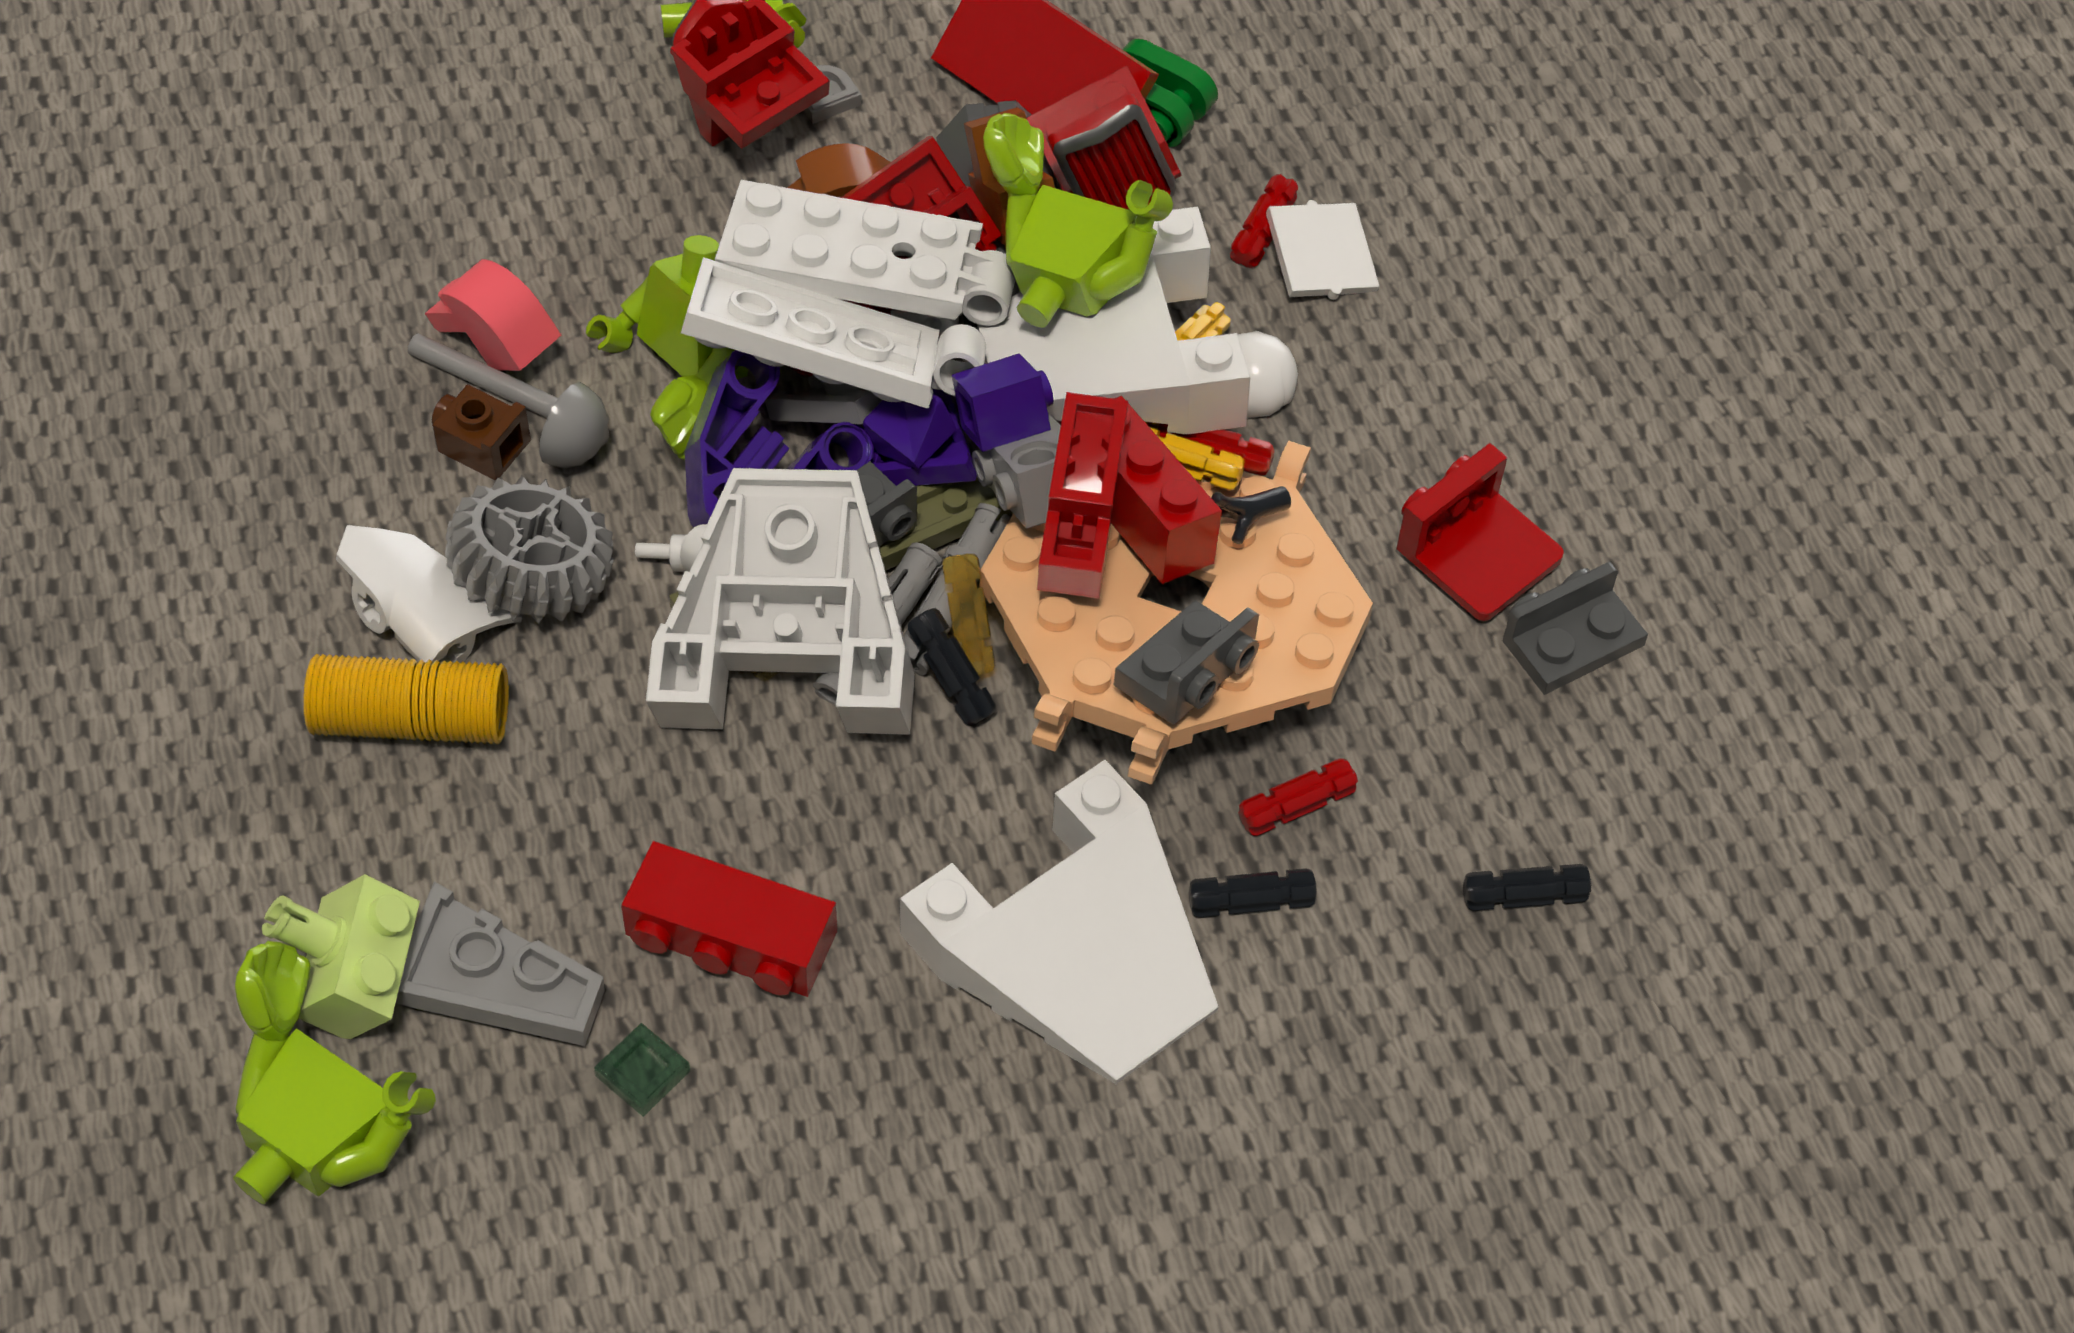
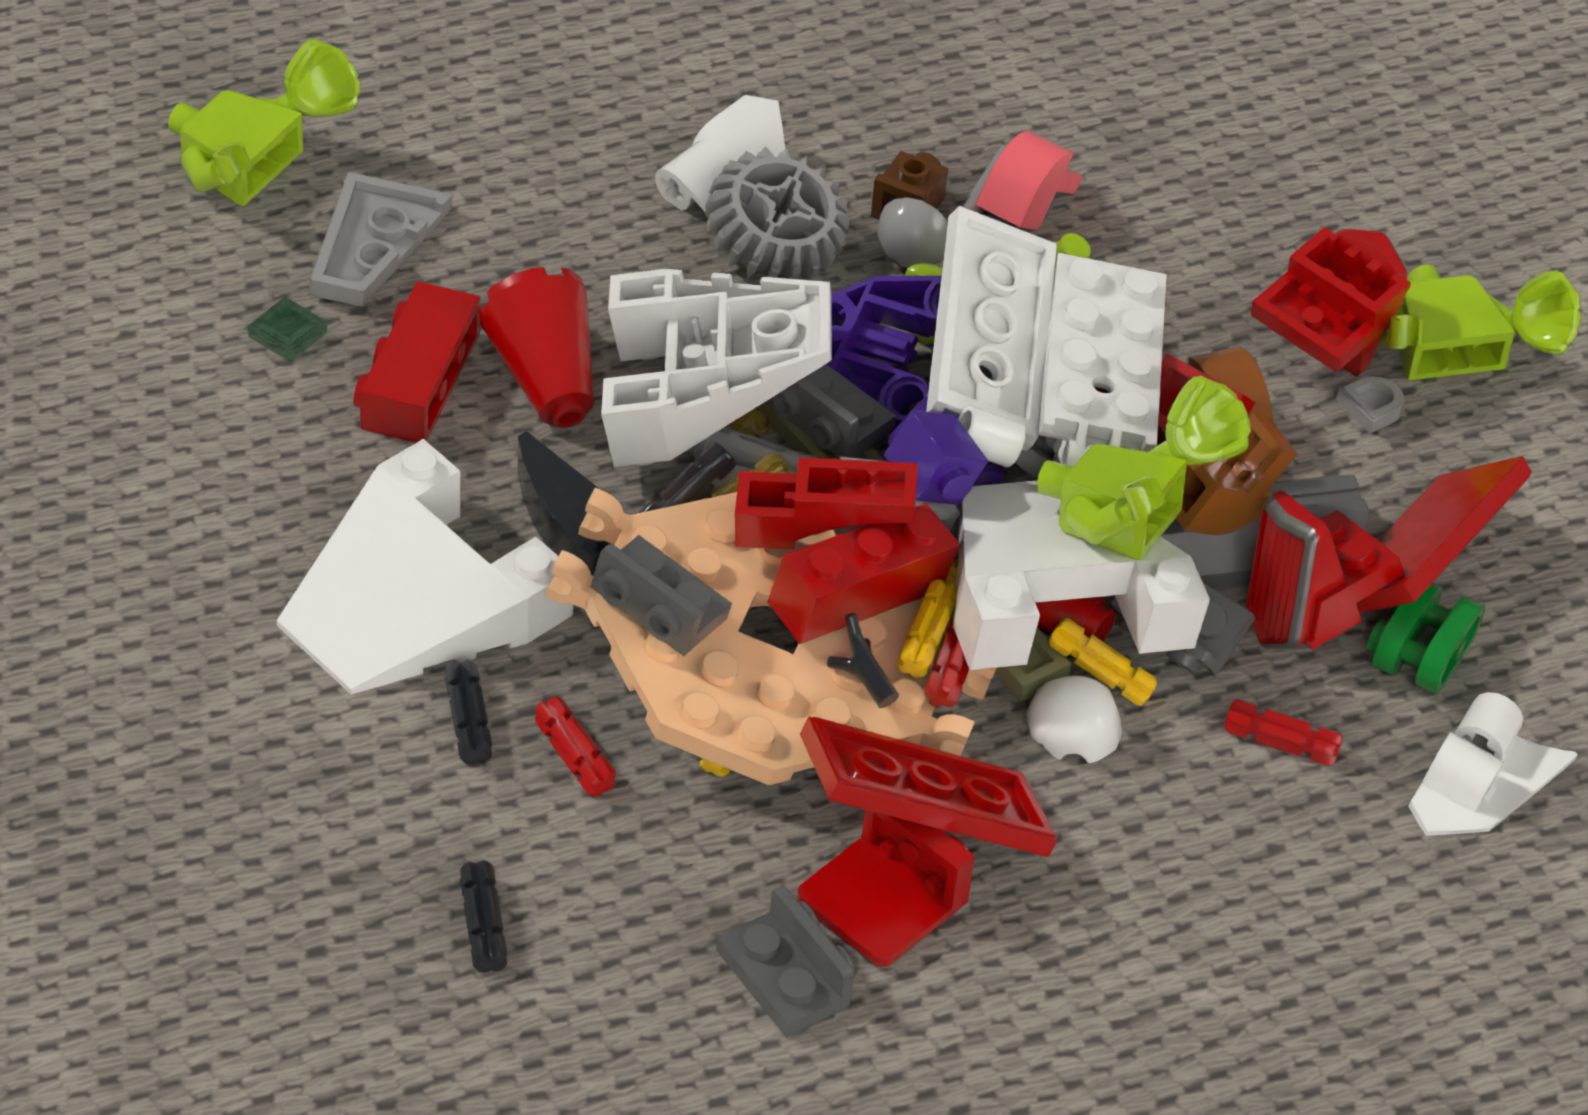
camera: 85 degrees right, 10 degrees down
(354, 952) = (371, 138): yellowish green brick -> none
(384, 694) = (620, 160): yellow piece -> none
(728, 783) = (544, 340): none -> red cone
(975, 785) = (556, 500): none -> black slope
(1307, 85) = (1484, 771): none -> white panel
(1322, 249) = (1250, 774): white piece -> none
(1398, 476) = (927, 786): none -> red tile

